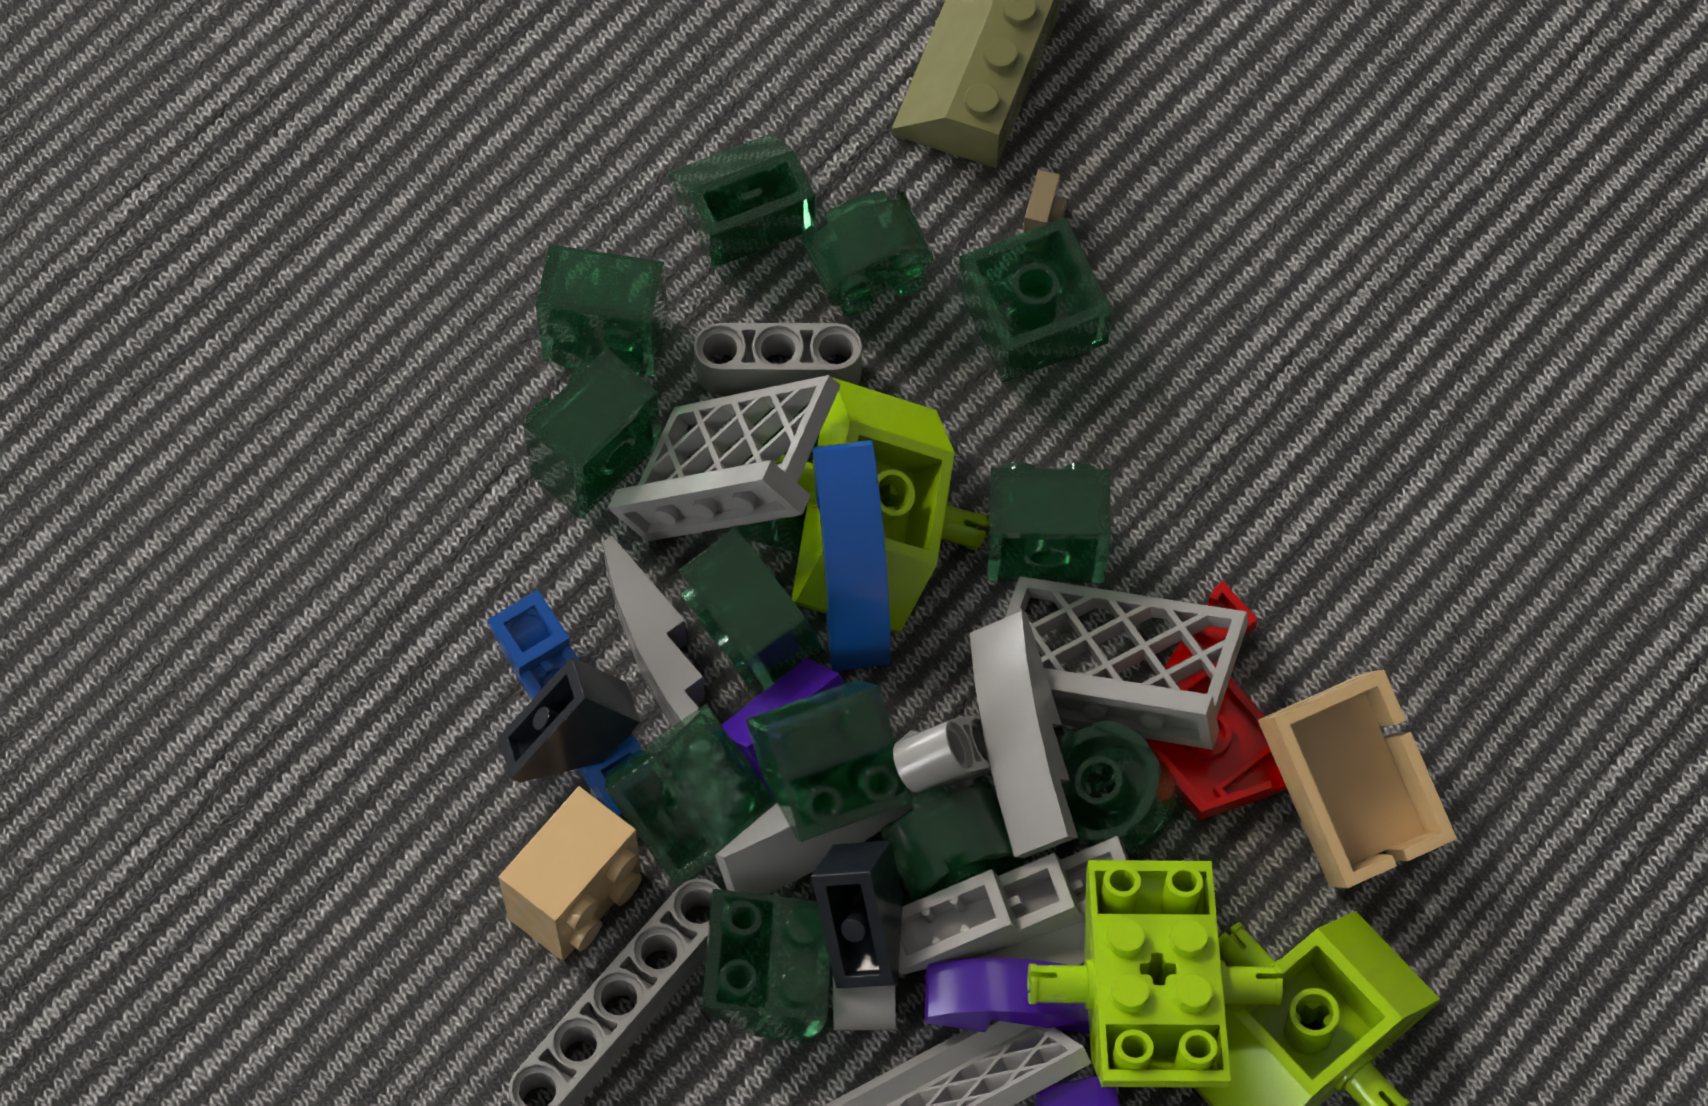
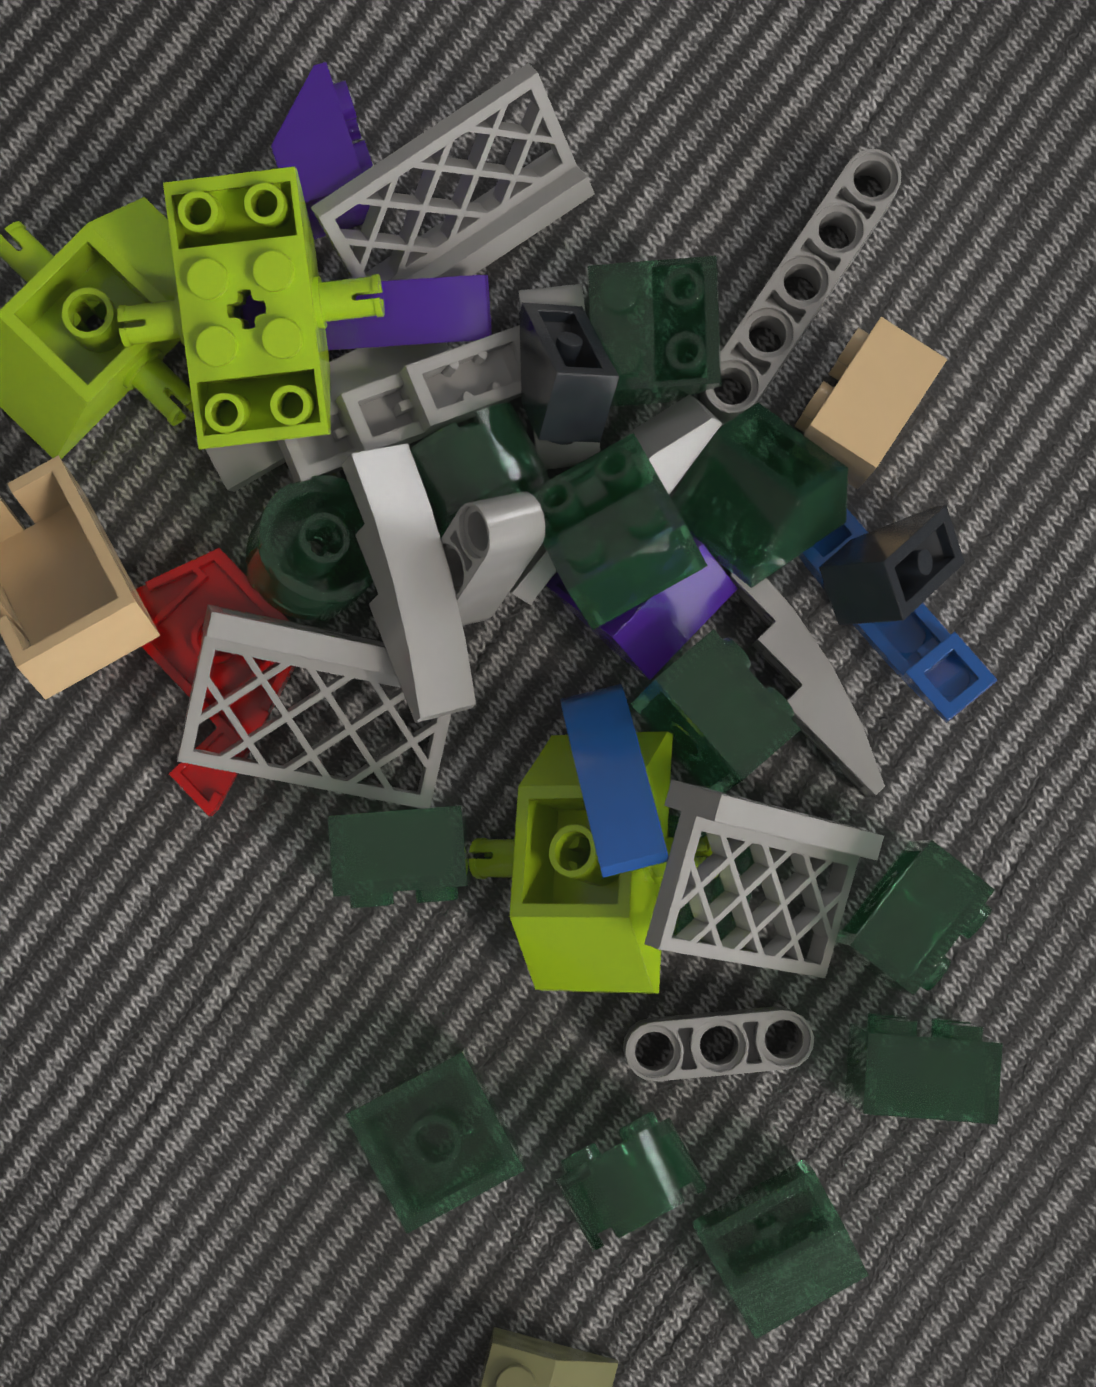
camera: 170 degrees right, 20 degrees up
(1044, 202) = (432, 1264): dark tan plate -> none

